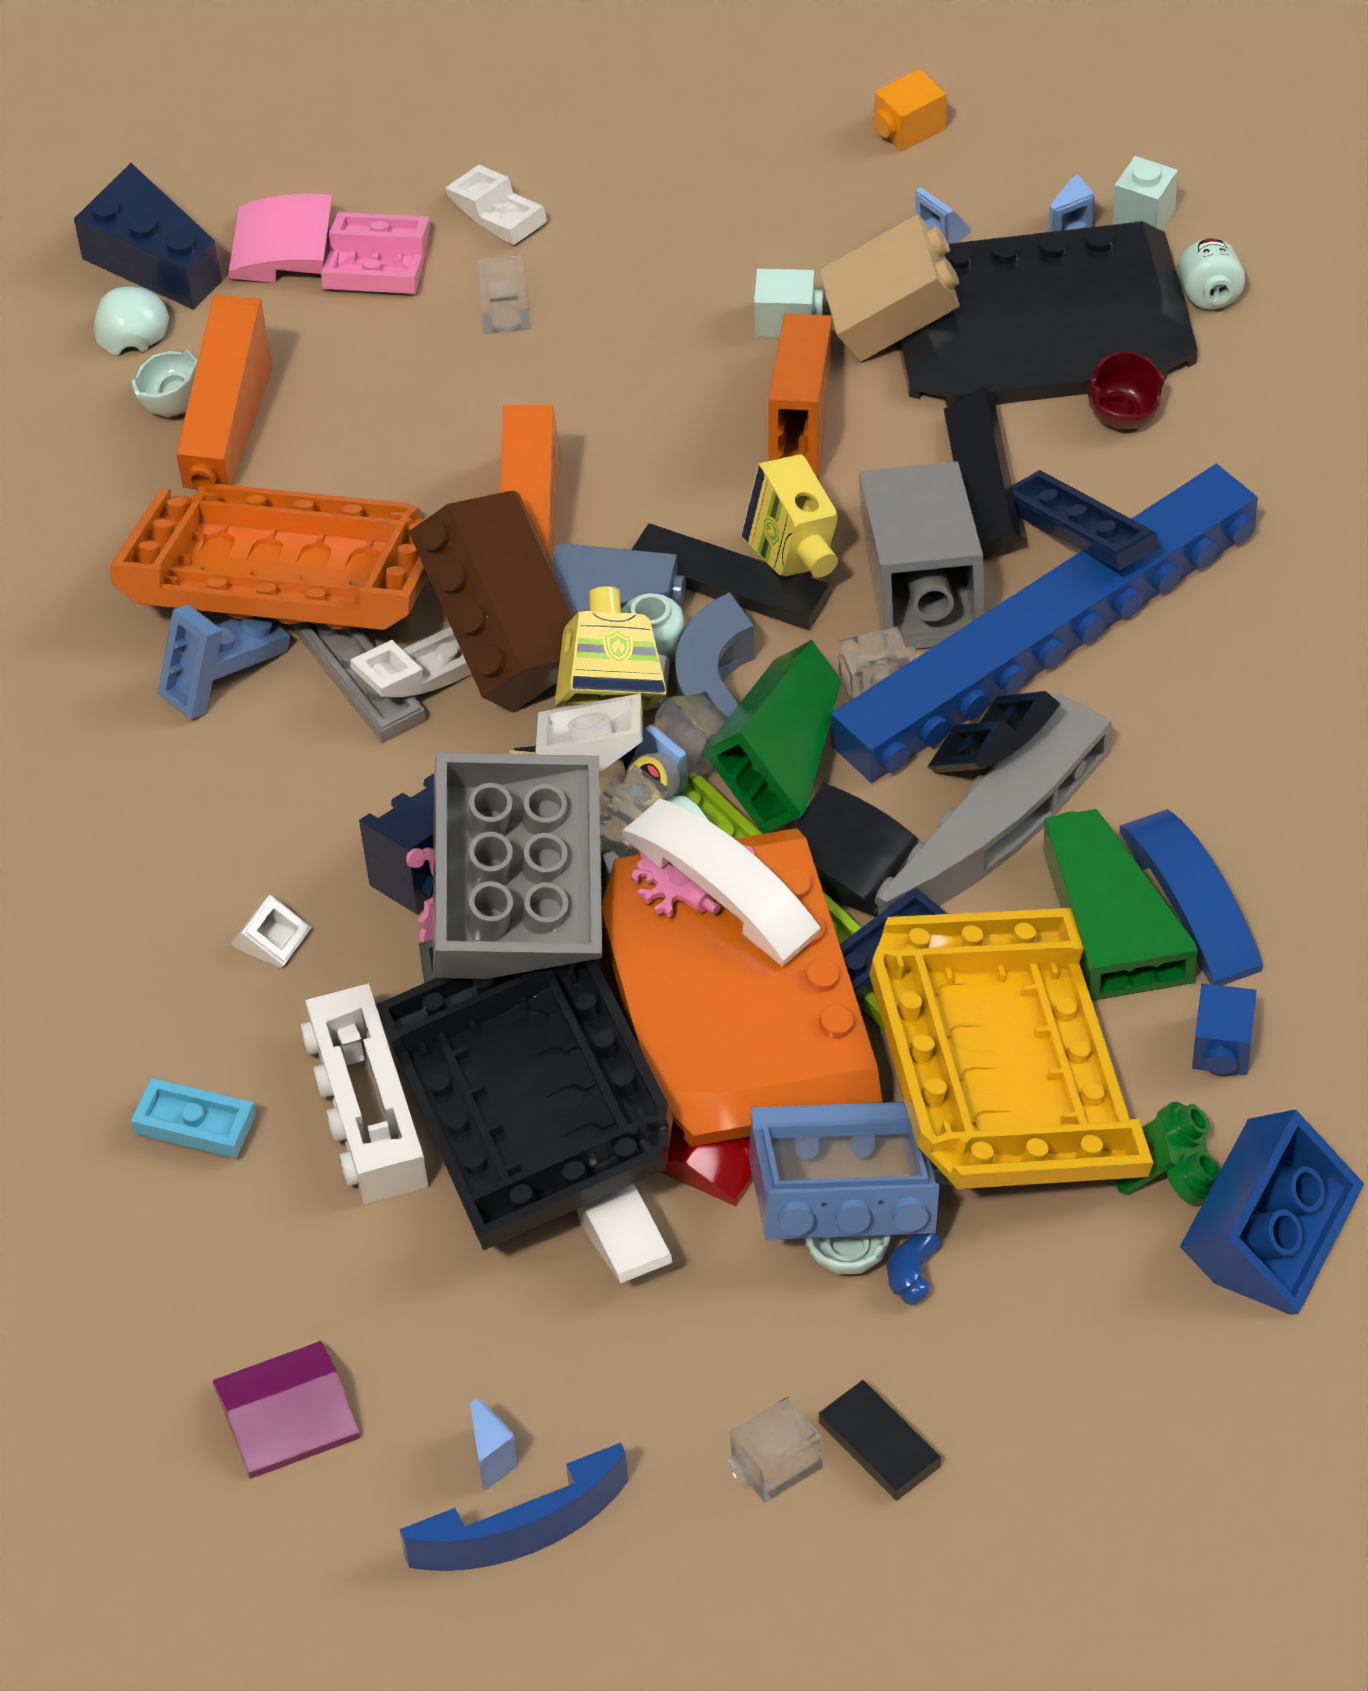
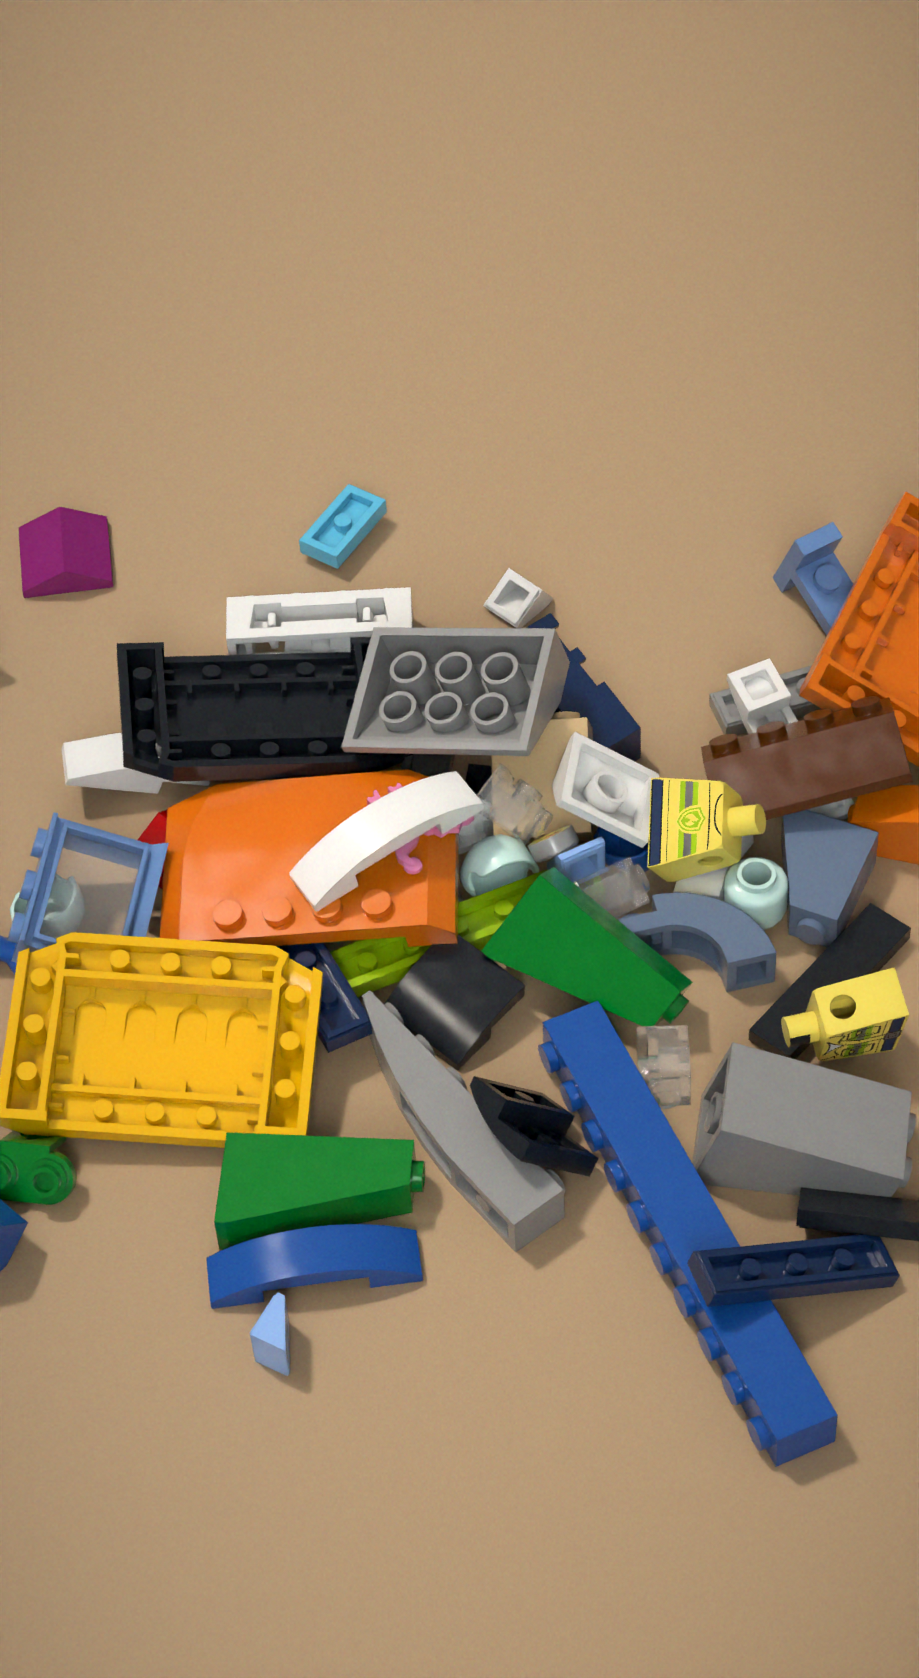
camera: 105 degrees right, 0 degrees up
(1224, 1029) = (138, 1238): blue brick -> none
(1283, 890) = (271, 1336): none -> light blue slope

